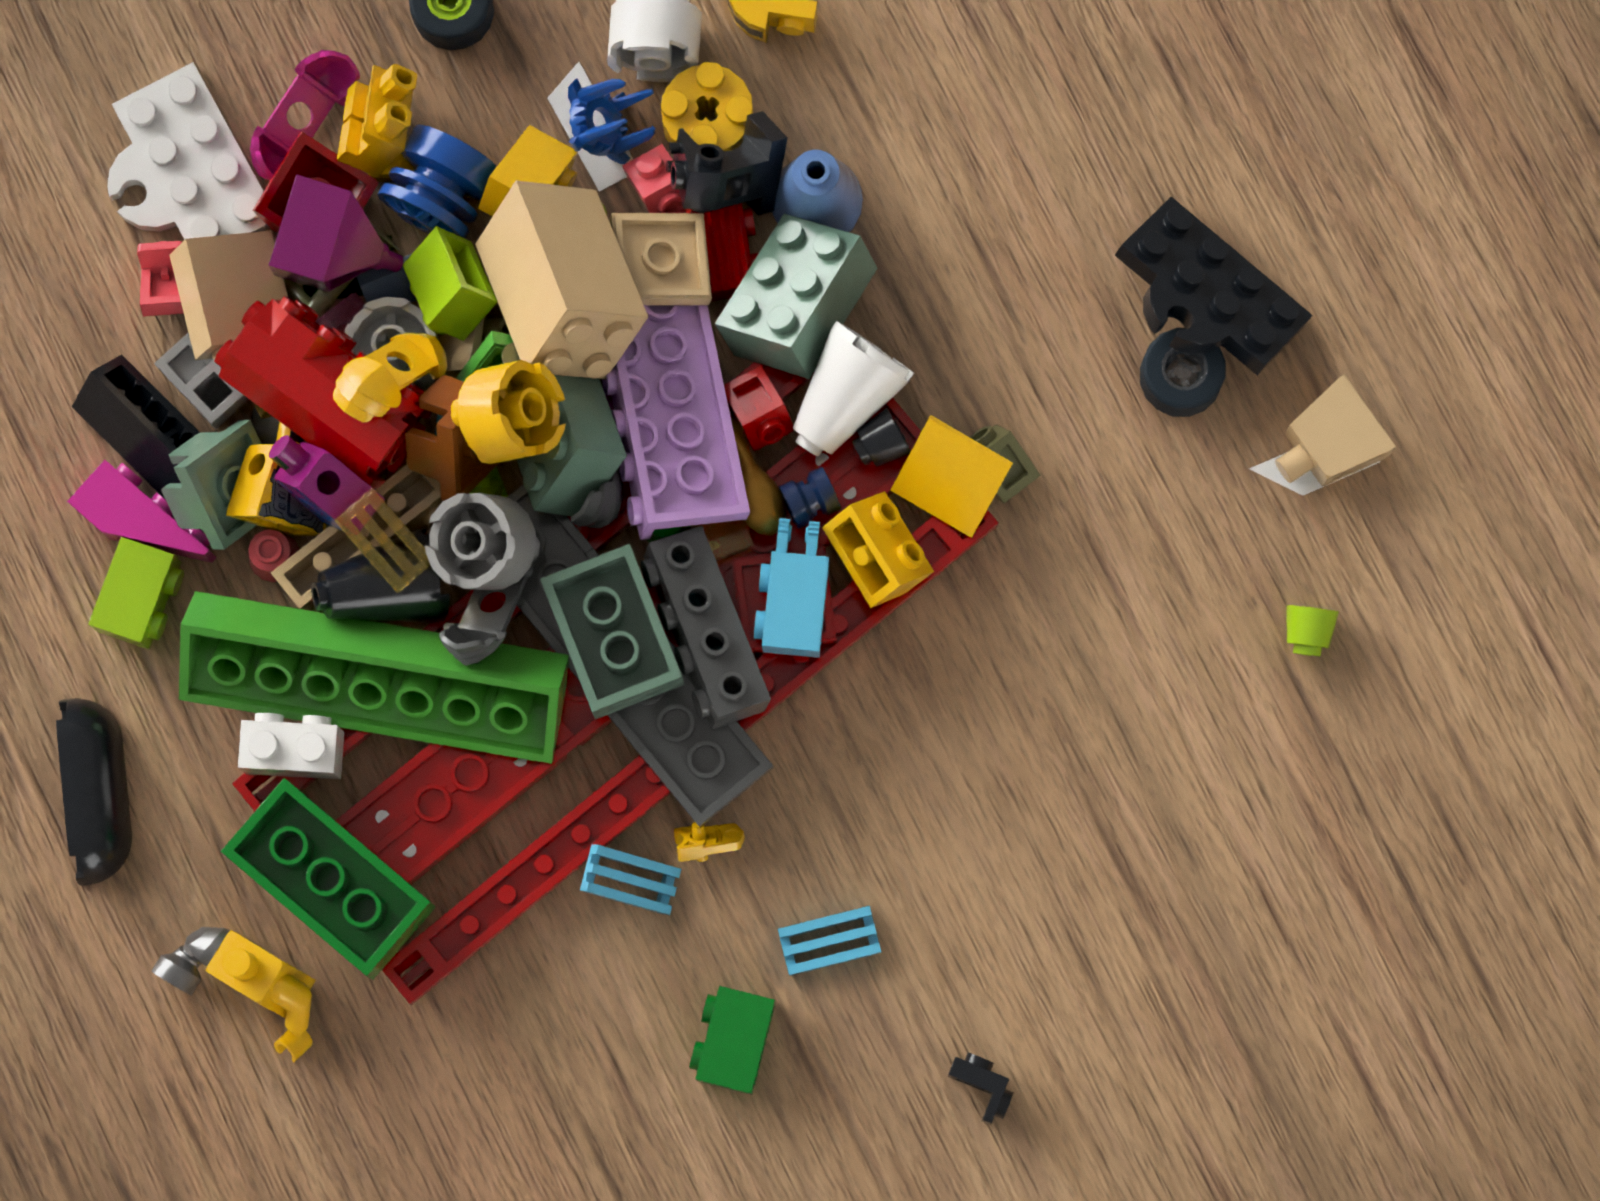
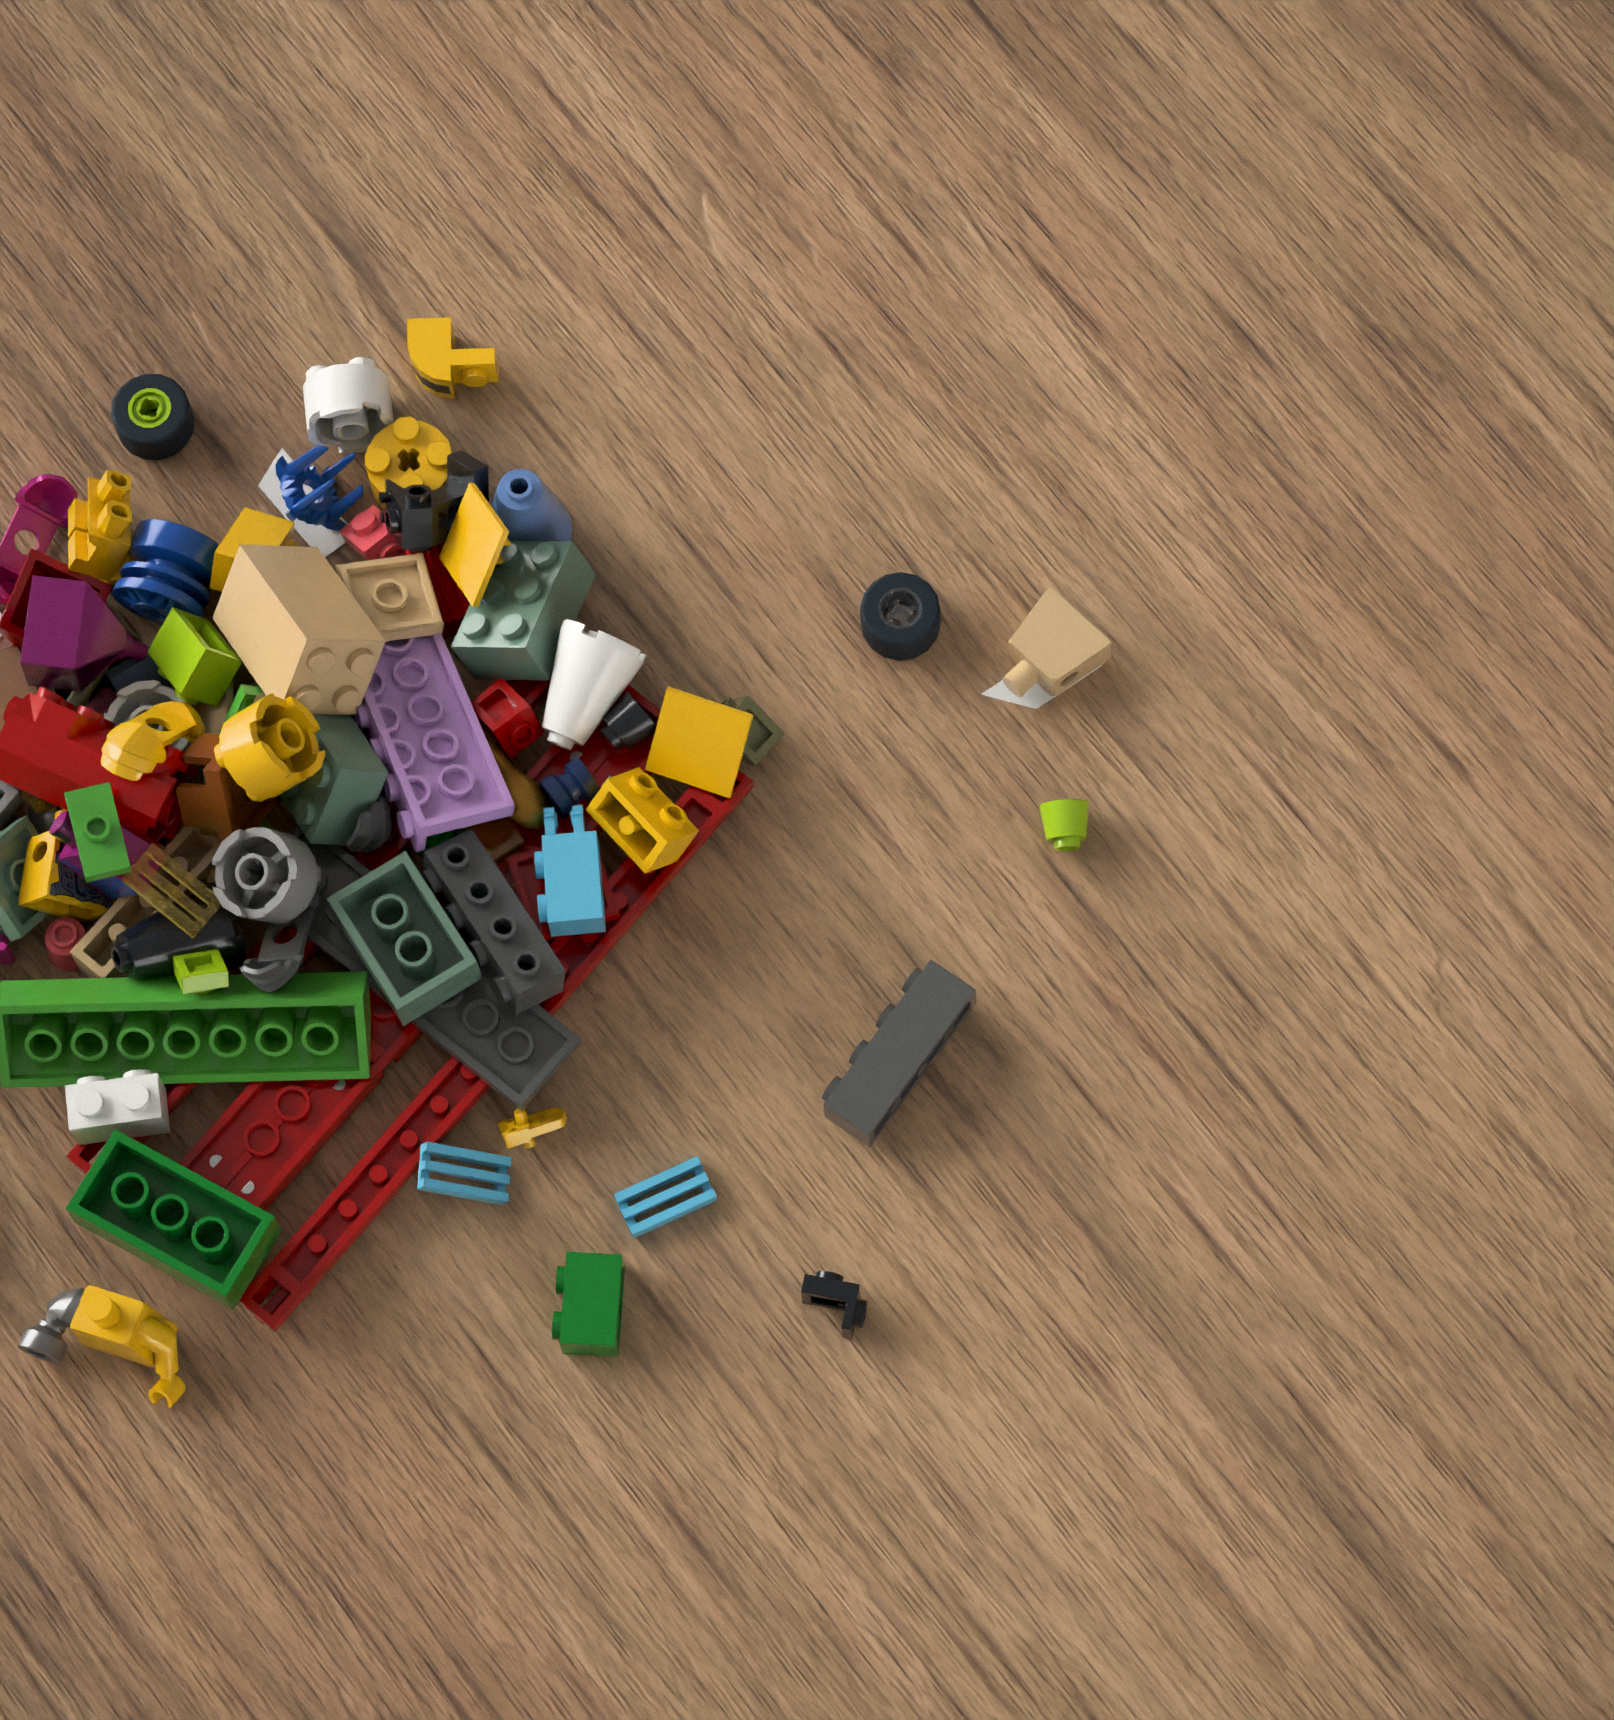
camera: 10 degrees left, 10 degrees down
(317, 469) = (97, 832): none -> bright green plate
(399, 628) = (200, 972): none -> lime plate
(758, 221) = (474, 544): none -> yellow piece
(1094, 840) = (899, 1052): none -> dark grey brick
(1209, 290) = (910, 537): black plate -> none

